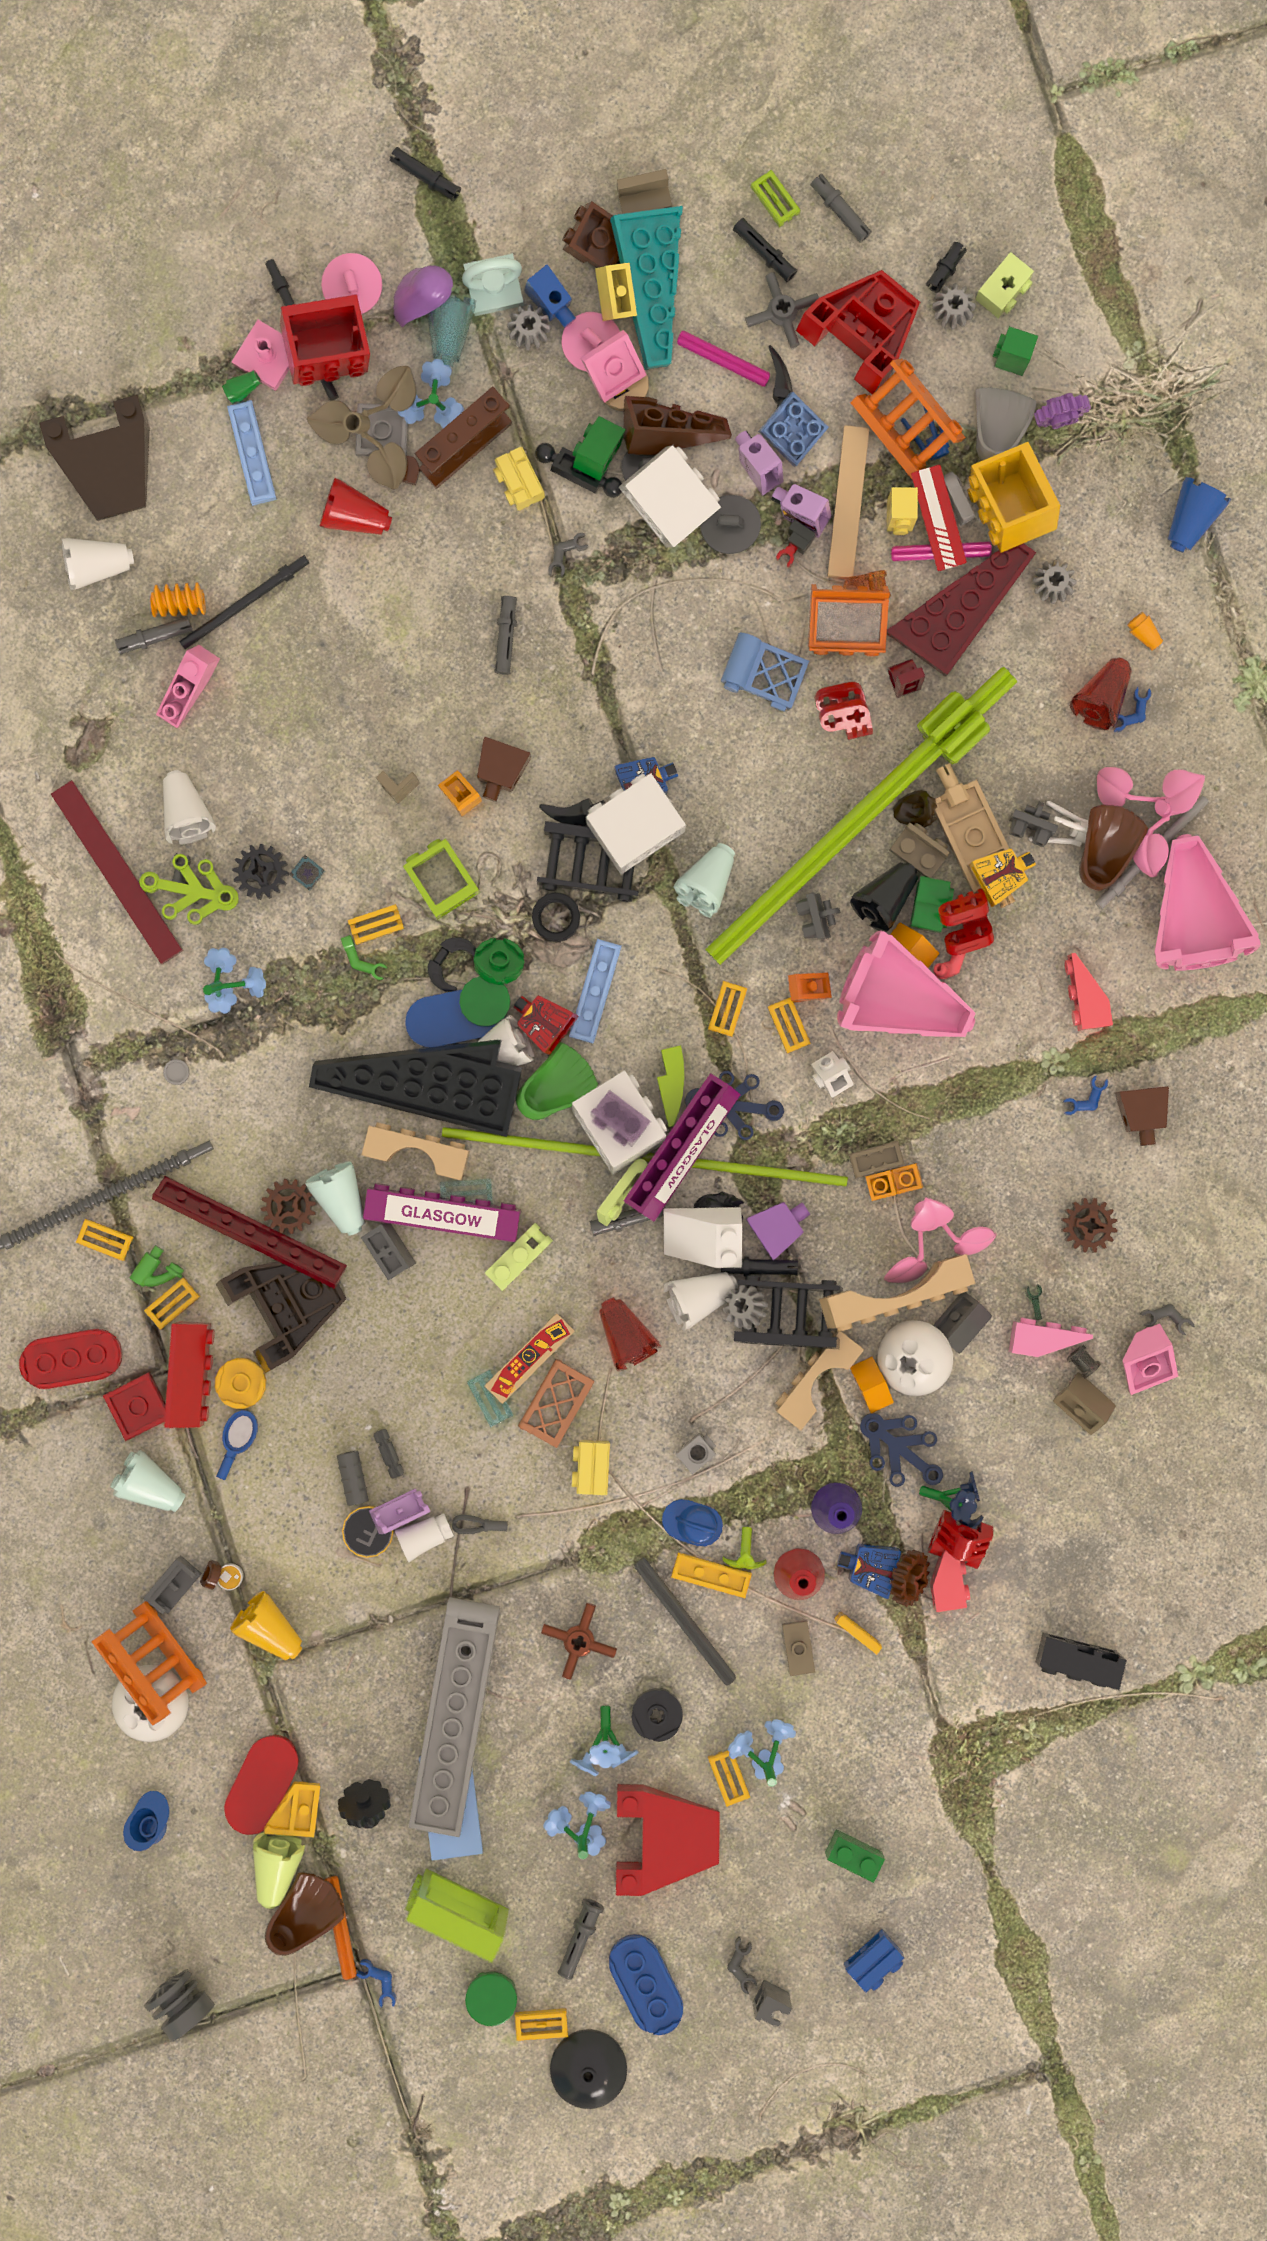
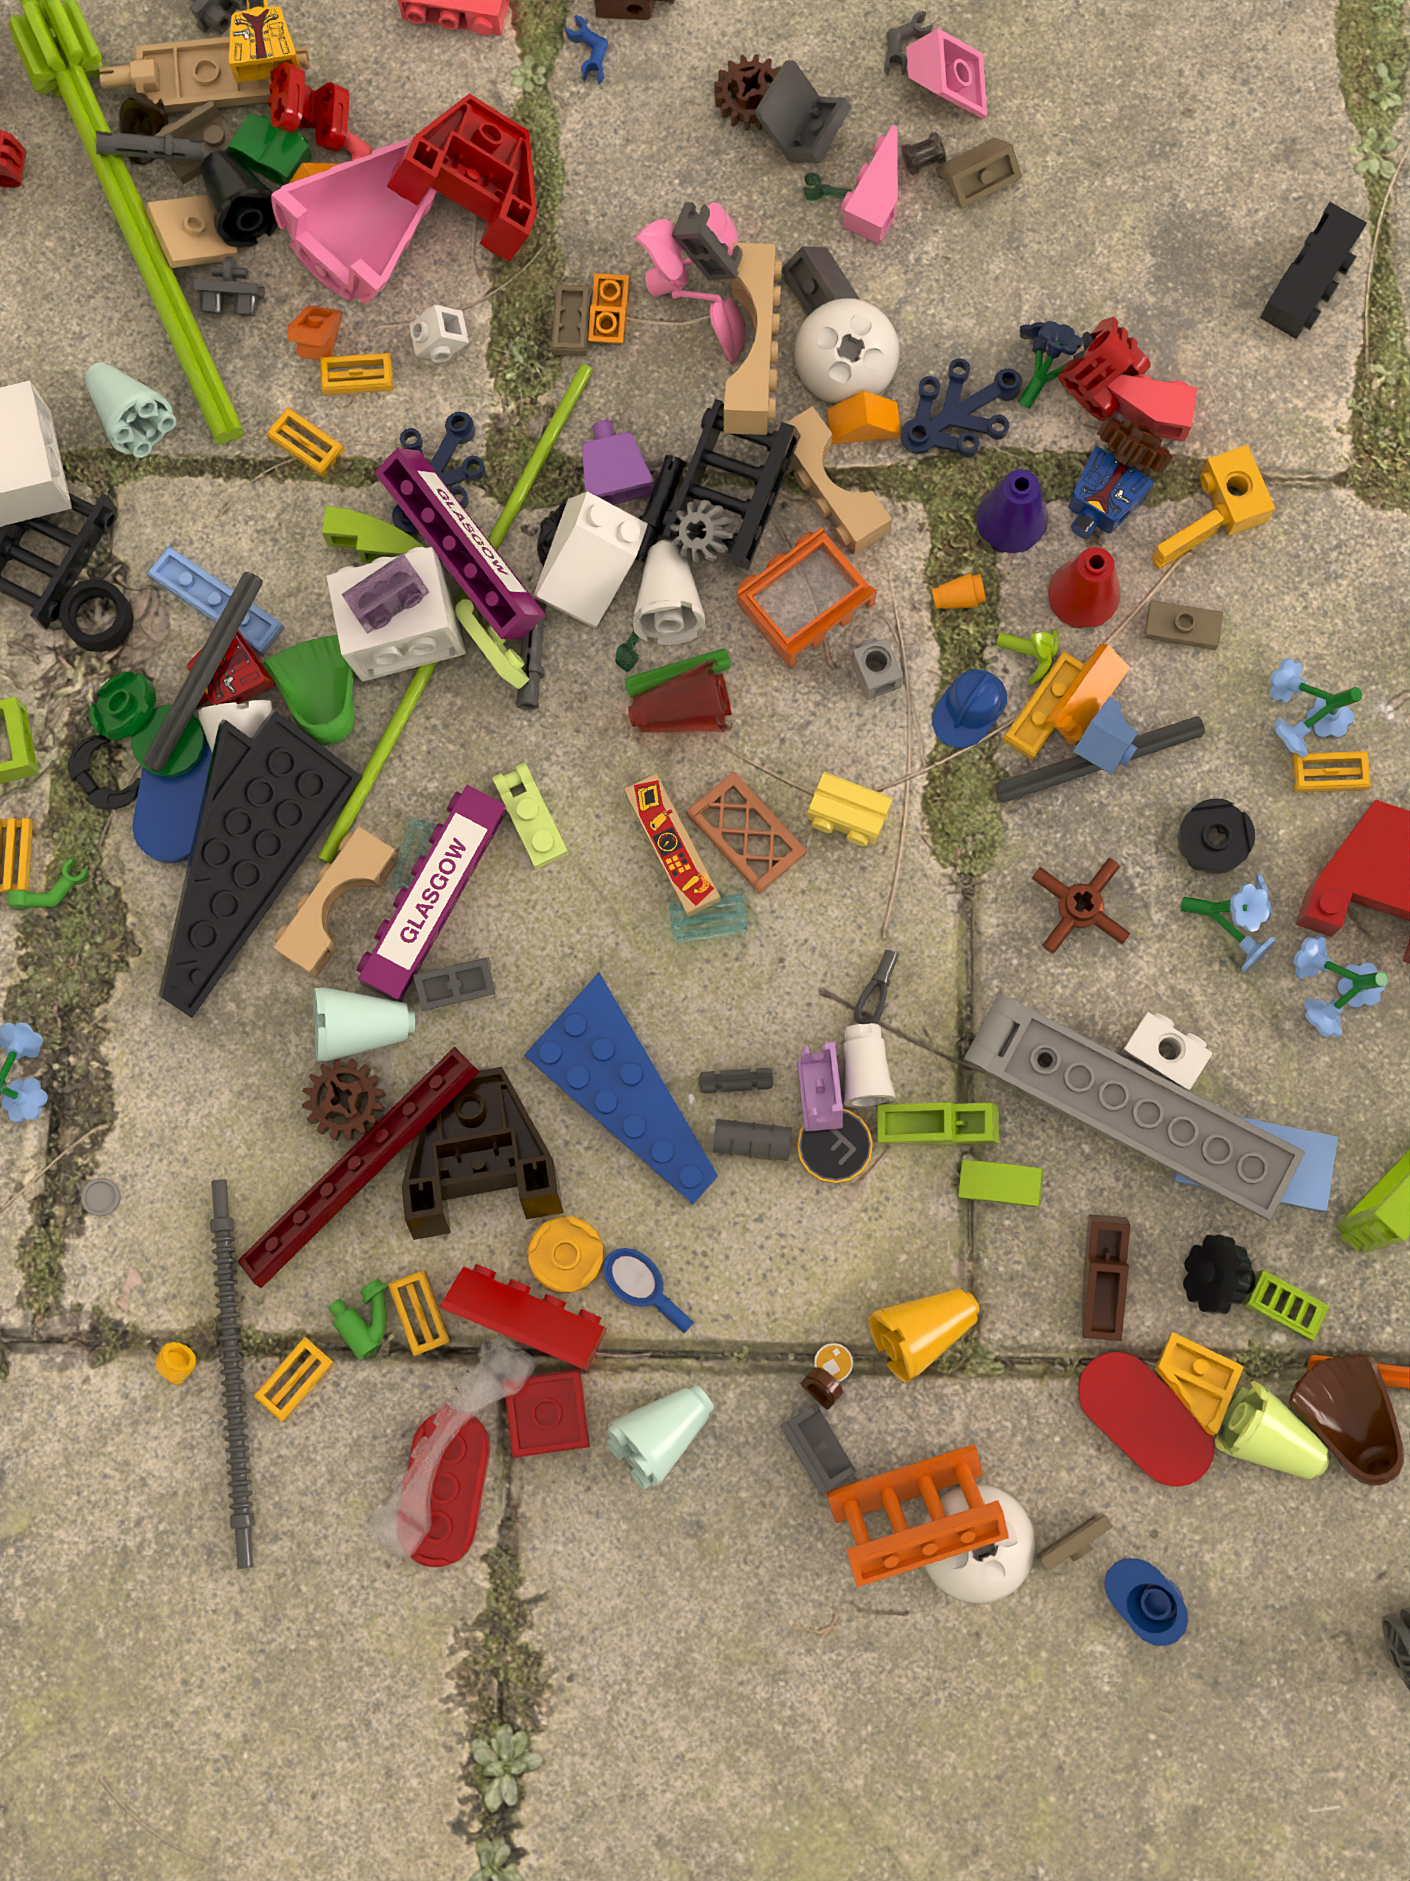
camera: 65 degrees left, 10 degrees down
(39, 1344) = (407, 1515): none -> clear arch
(88, 1162) = (175, 1362): none -> yellow tile
(168, 1764) = (1075, 1543): none -> dark tan plate
(342, 1732) = (1105, 1277): none -> reddish brown slope
(363, 1832) = (1253, 1302): none -> lime slope
(364, 1371) = (609, 1074): none -> blue wing
(379, 1646) = (1001, 1183): none -> lime slope
(403, 1594) = (938, 1123): none -> lime slope
(493, 1741) = (1144, 1044): none -> white brick
(535, 1010) = (202, 671): none -> dark grey axle
(648, 1281) = (625, 656): none -> clear green hand
(649, 1319) = (644, 681): none -> bright green axle
(694, 1624) = (1108, 738): none -> medium blue arch
(725, 1599) = (1087, 693): none -> light orange hinge
(730, 1388) = (804, 595): none -> window
(769, 1492) = (960, 593): none -> light orange cone
(849, 871) = (187, 231): none -> tan plate
(898, 1669) = (1240, 471): none -> yellow brick
(900, 831) = (150, 146): none -> dark grey pin
(951, 1239) = (703, 245): none -> dark grey hinge
(965, 1057) = (478, 163): none -> red wedge
(1079, 1269) = (798, 117): none -> dark grey bracket

